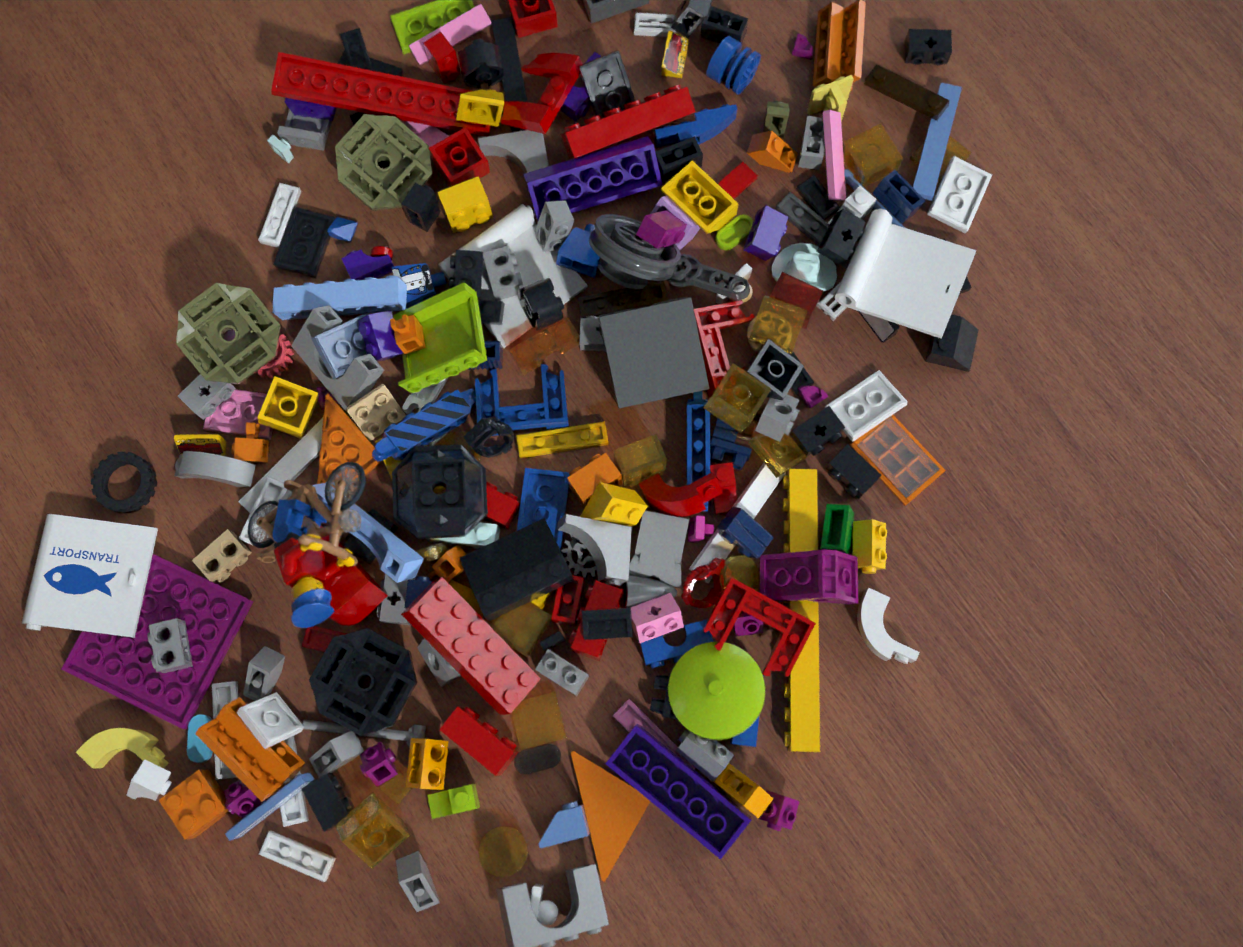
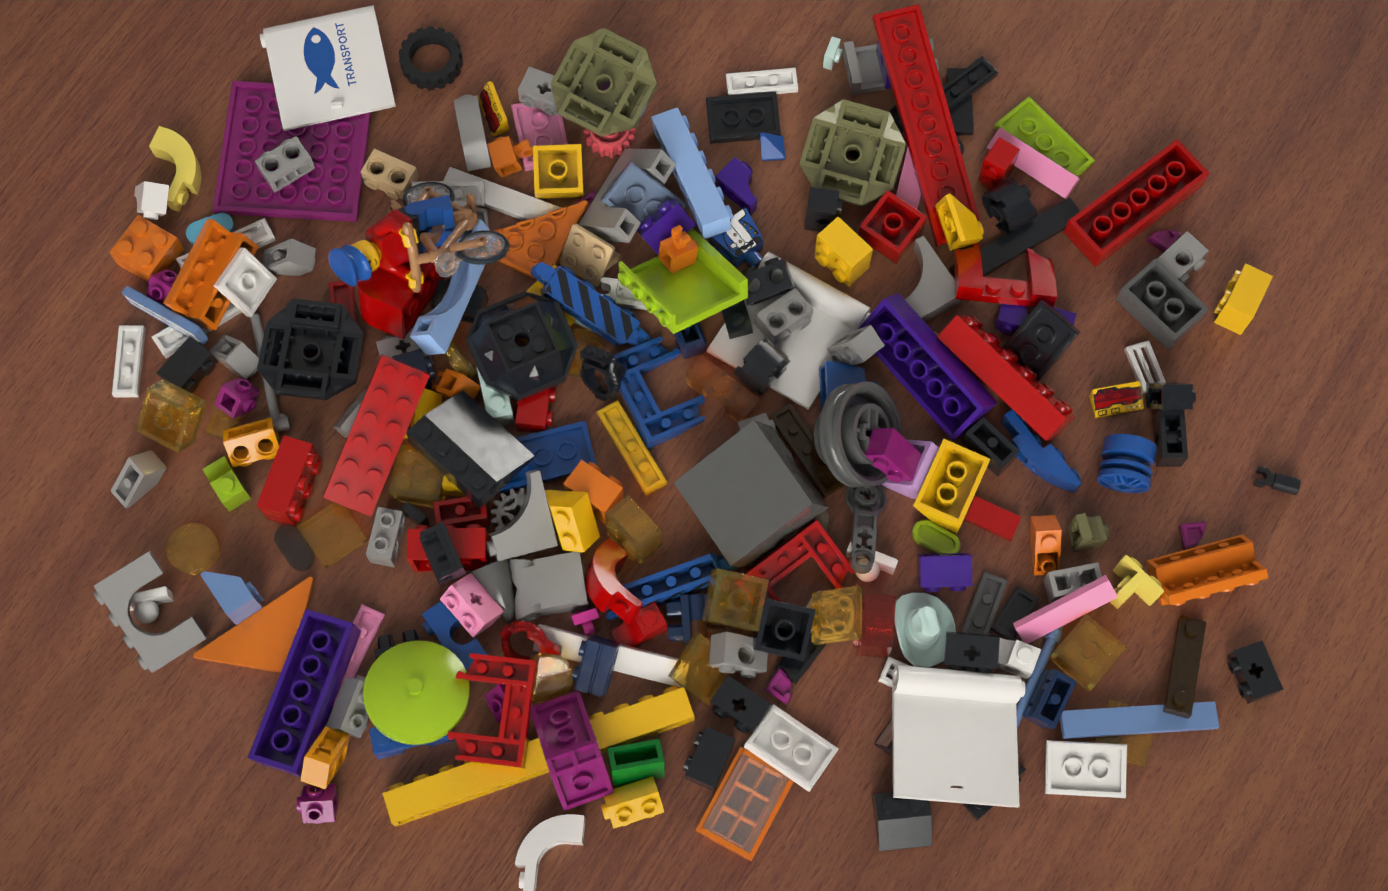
camera: 65 degrees right, 5 degrees down
(380, 251) = (758, 191): red tile -> none

